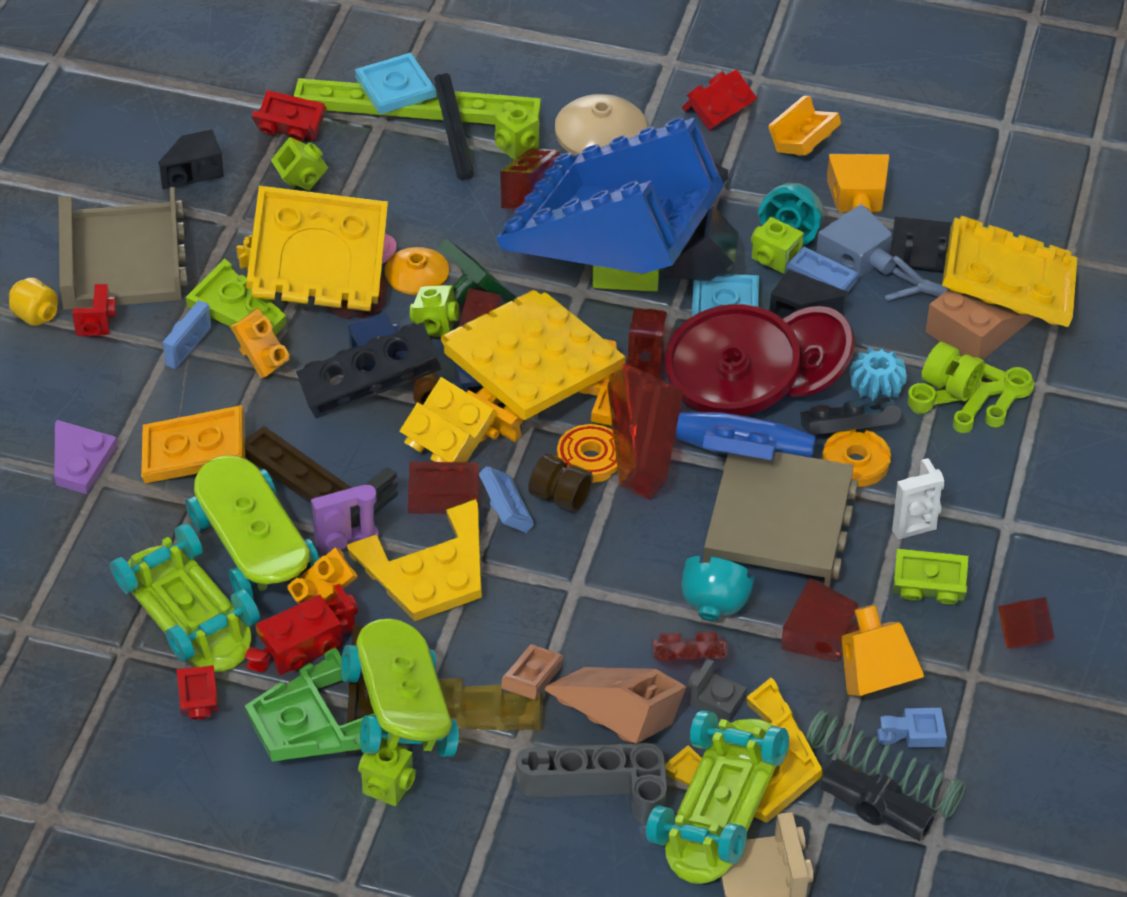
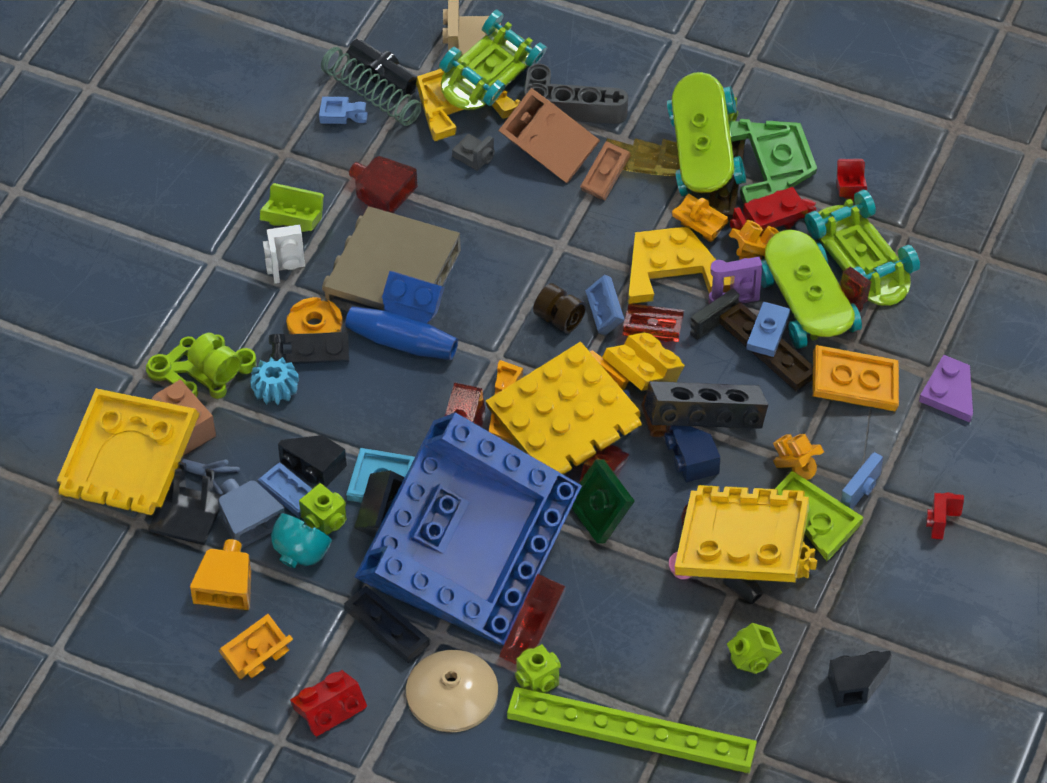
camera: 170 degrees left, 5 degrees up
(33, 301) = (1001, 533): yellow head -> none
(124, 247) = (924, 586): dark tan panel -> none
(198, 518) = (855, 287): none -> clear red plate
(289, 116) = (762, 718): red bracket -> none
(300, 475) = (768, 329): none -> medium blue plate
(395, 83) = (652, 740): medium azure tile -> none
(398, 606) = (700, 217): none -> light orange hips
(416, 268) = (648, 553): light orange dish -> none
(436, 309) = (642, 473): lime brick -> none
(453, 126) = (599, 683): black axle -> none
(589, 438) = (525, 333): light orange tile -> none
(643, 428) = (482, 342): clear red slope -> none
(671, 646) = (487, 175): clear red plate -> none
(715, 587) = (457, 210): teal cylinder -> none
(733, 359) = (393, 394): dark red dish -> none
(824, 346) = (329, 392): dark red dish -> none
(877, 655) = (352, 144): light orange torso -> none
(1026, 622) = (233, 172): clear red panel -> none

